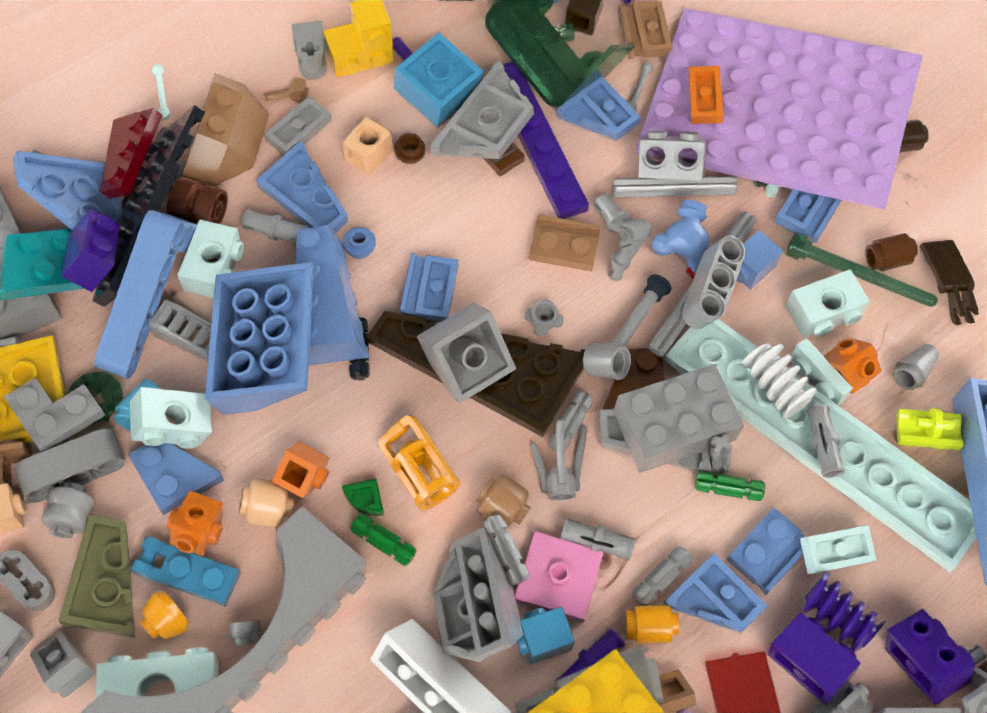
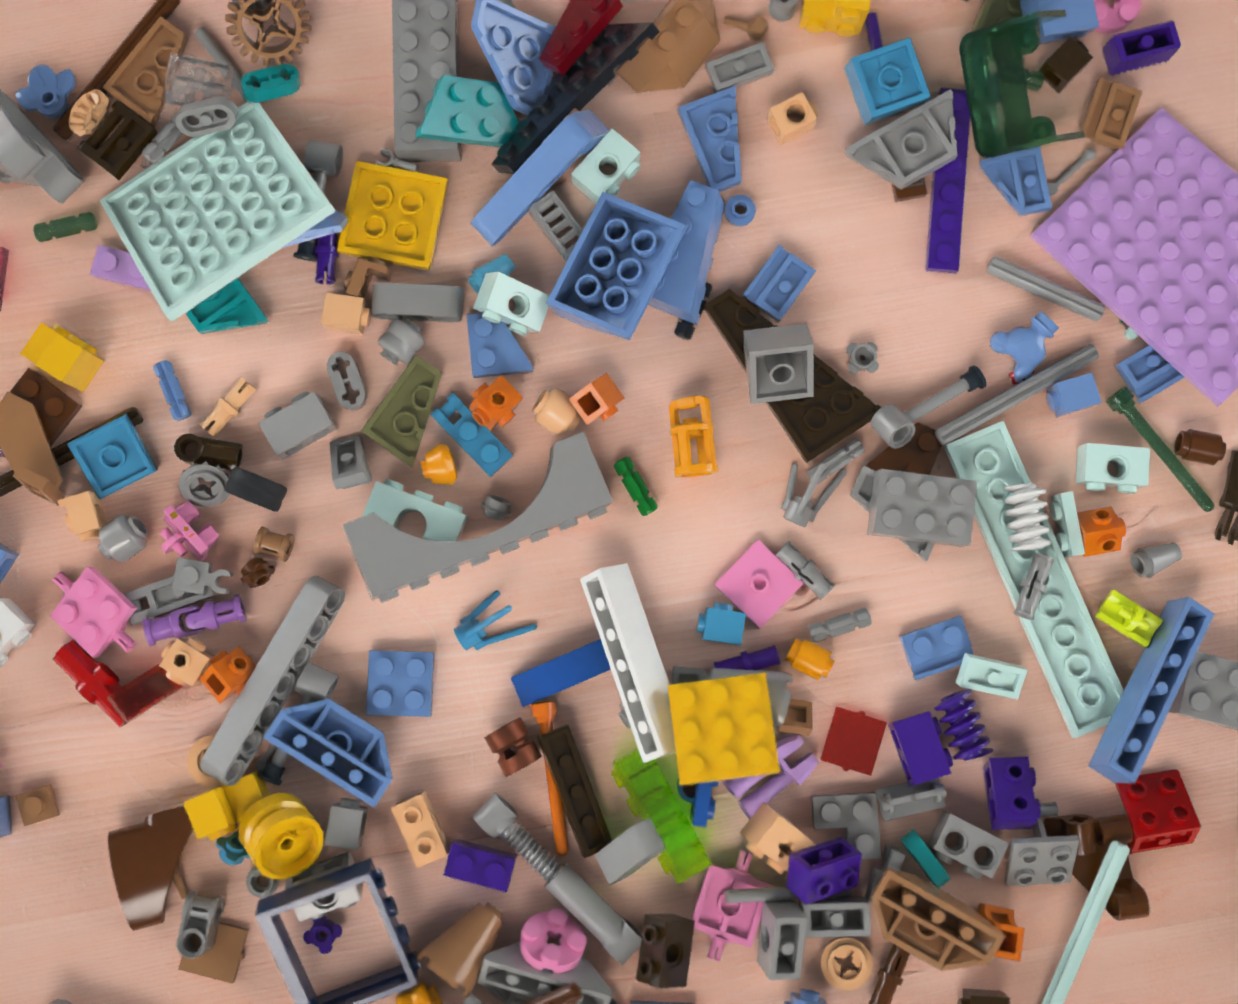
camera: 25 degrees right, 20 degrees up
(49, 421) = (414, 258): light grey plate -> none
(90, 250) = (508, 121): dark purple brick -> none
(106, 385) = (463, 237): clear green gear -> none
(193, 201) = (618, 108): copper wheel -> none
(273, 226) = (673, 160): light grey pin -> none
(364, 497) = (637, 443): green tile -> none
(406, 142) = (831, 129): reddish brown plate -> none
(475, 600) = (682, 575): light grey wedge -> none
(504, 498) = (745, 503): medium nougat head -> none
(506, 549) = (727, 545): light grey axle -> none
(564, 243) = (918, 296): medium nougat plate -> none
(631, 231) = (982, 313): light grey pin -> none
(672, 166) = (1053, 271): brick -> none
(705, 95) = (1122, 216): orange plate -> none
(713, 282) = (1035, 402): light grey beam -> none
(717, 597) = (873, 663): medium blue wing -> none
(720, 453) = (940, 554): light grey axle -> none
(730, 485) = (936, 580): green axle -> none

